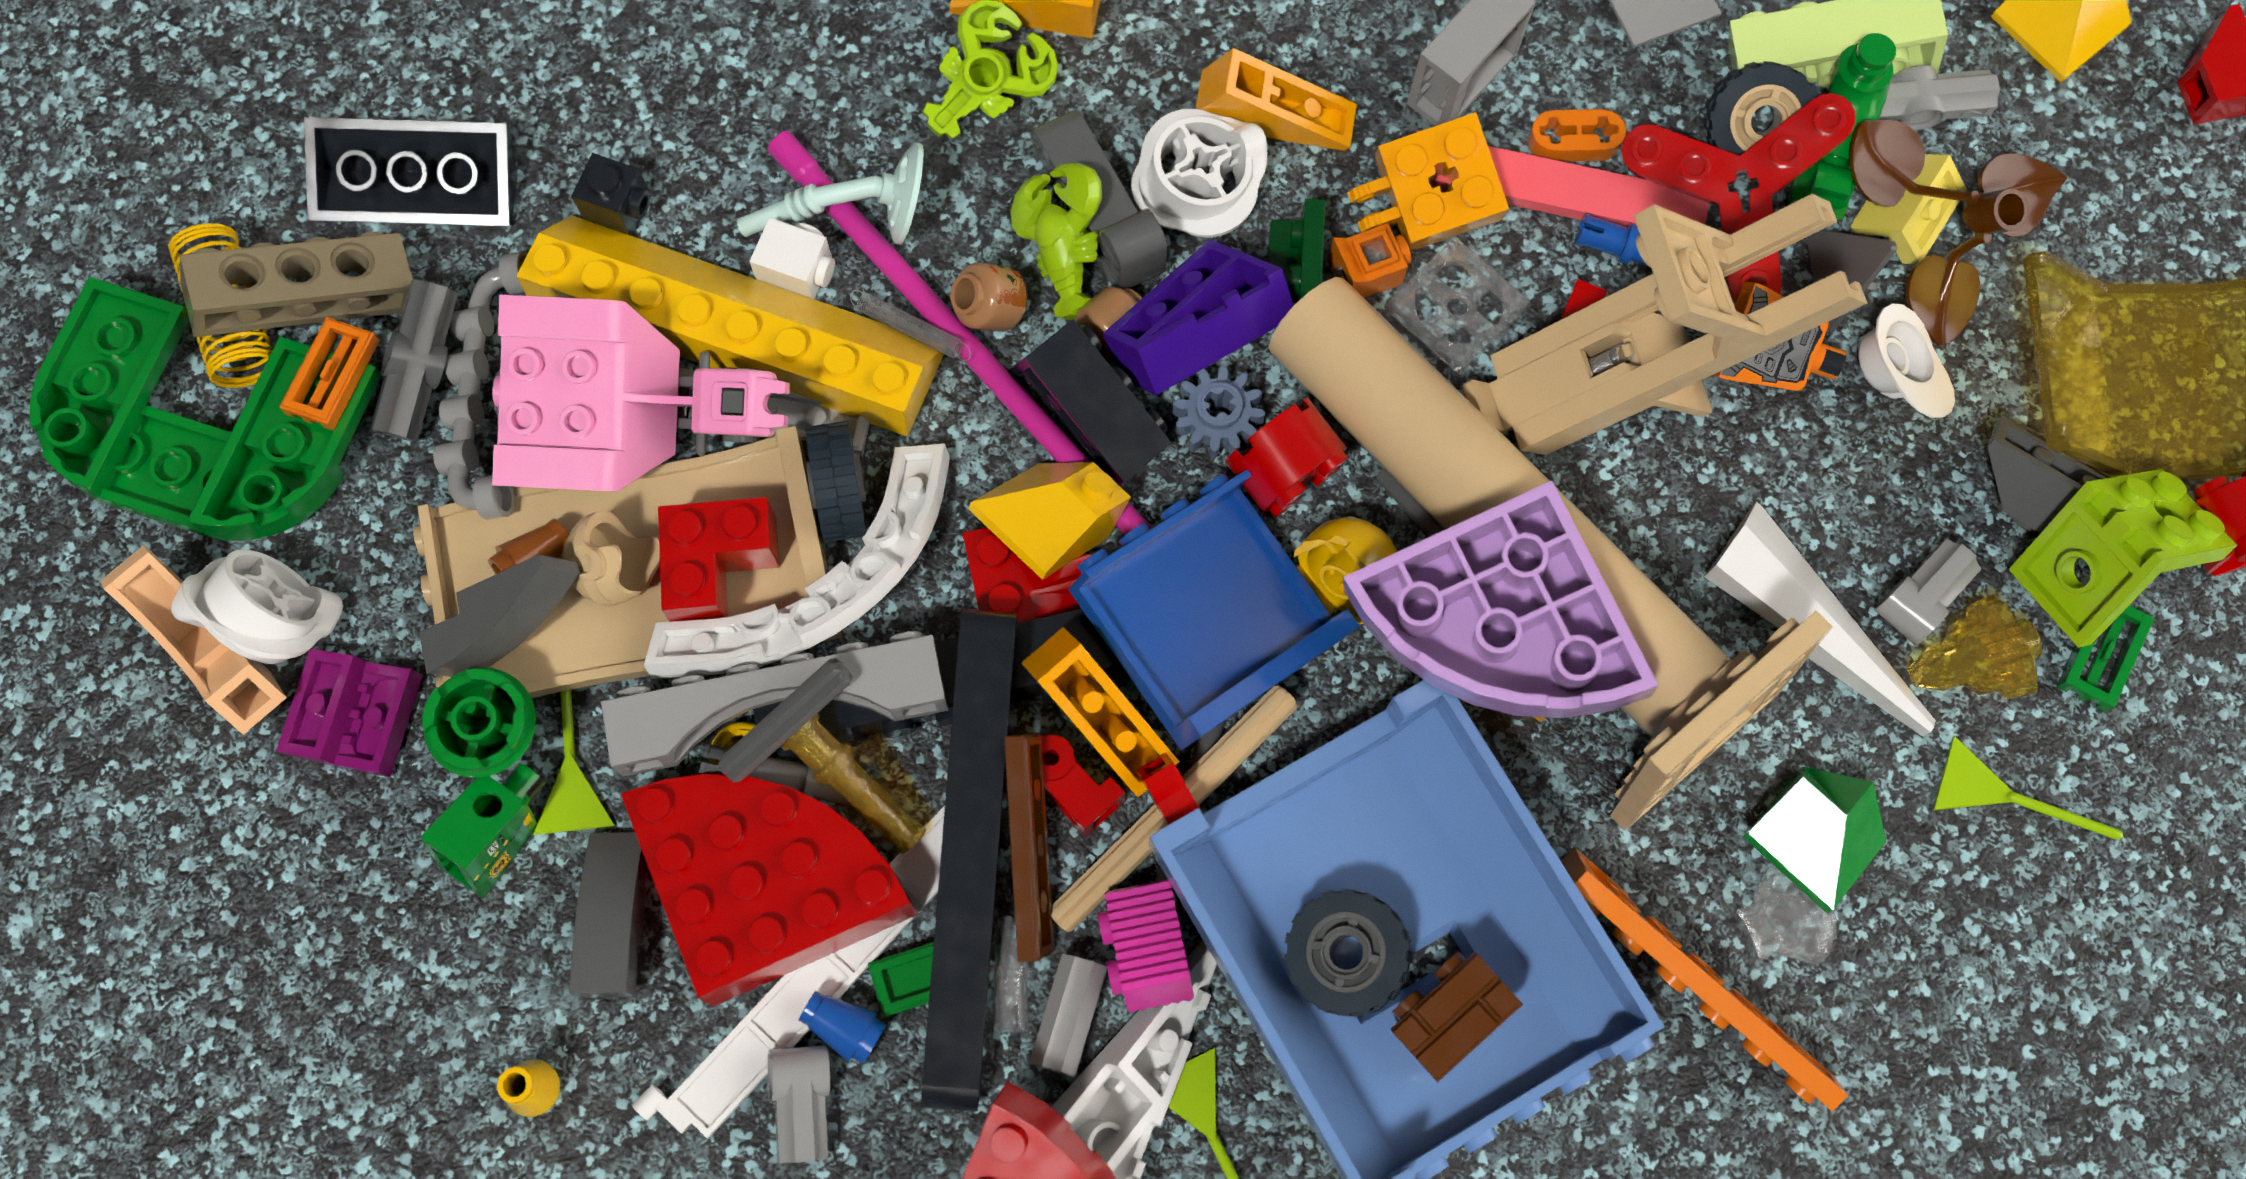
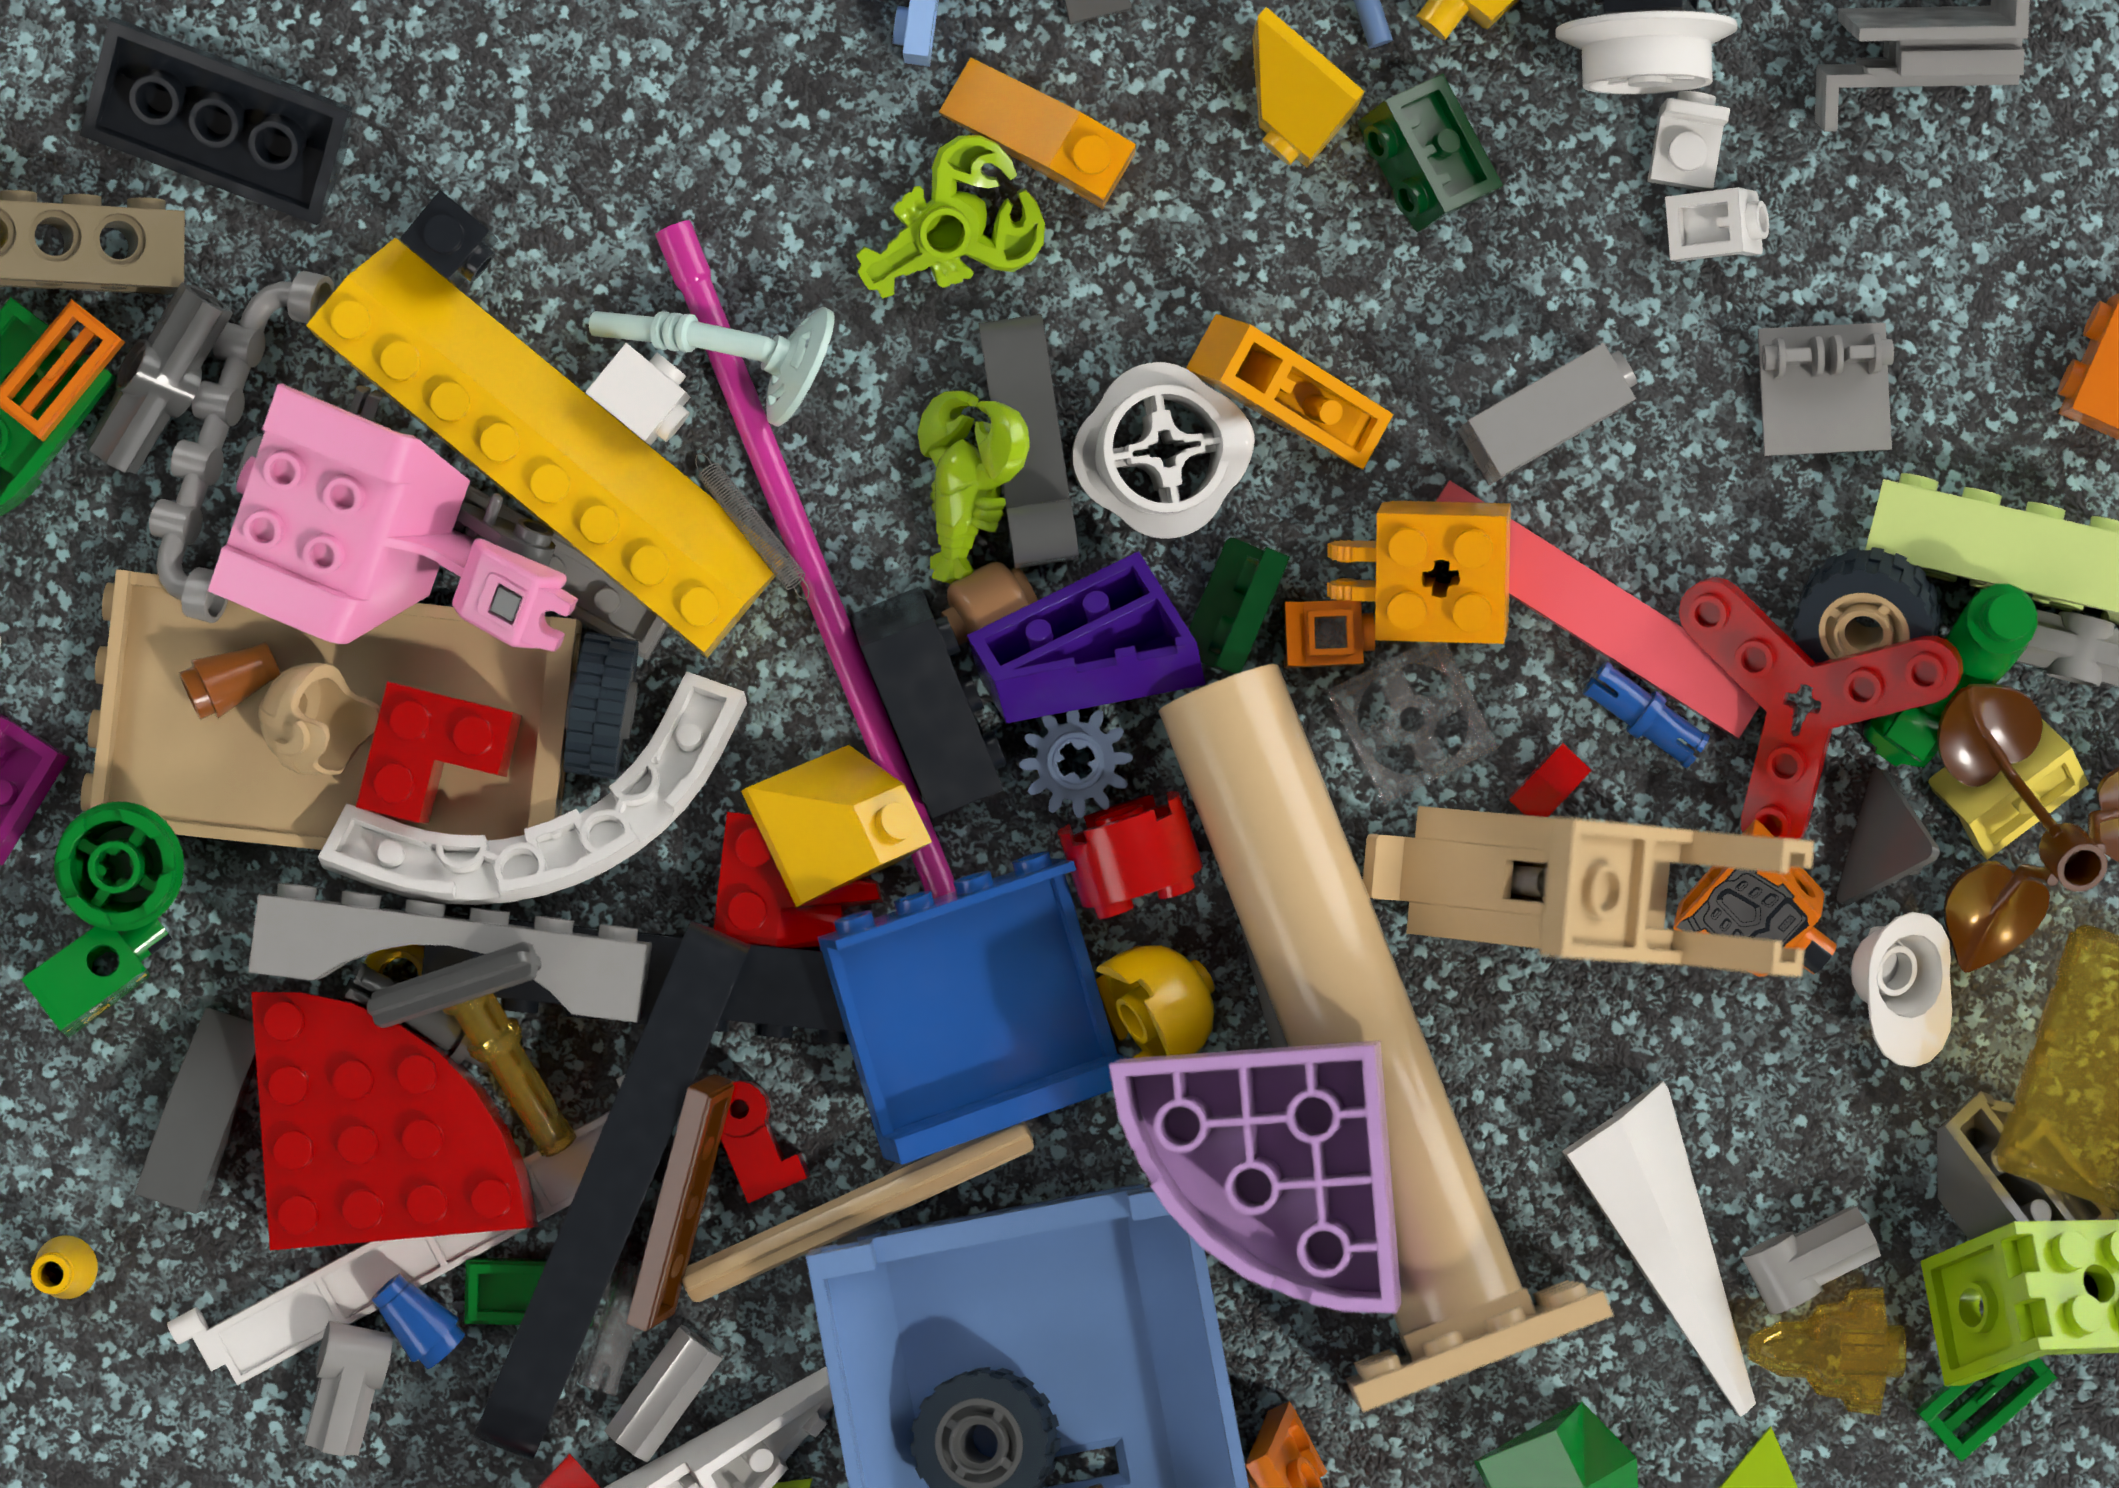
camera: 20 degrees right, 15 degrees up
(497, 615) = (167, 753): dark grey slope -> none
(572, 799) = (197, 960): lime piece -> none
(989, 297) = (855, 529): medium nougat head -> none
(1096, 707) = (806, 1085): light orange brick -> none
(1147, 946) = (771, 1354): dark pink brick -> none
(1167, 788) = (851, 1200): red piece -> none
(1576, 135) = (1648, 535): orange beam -> none

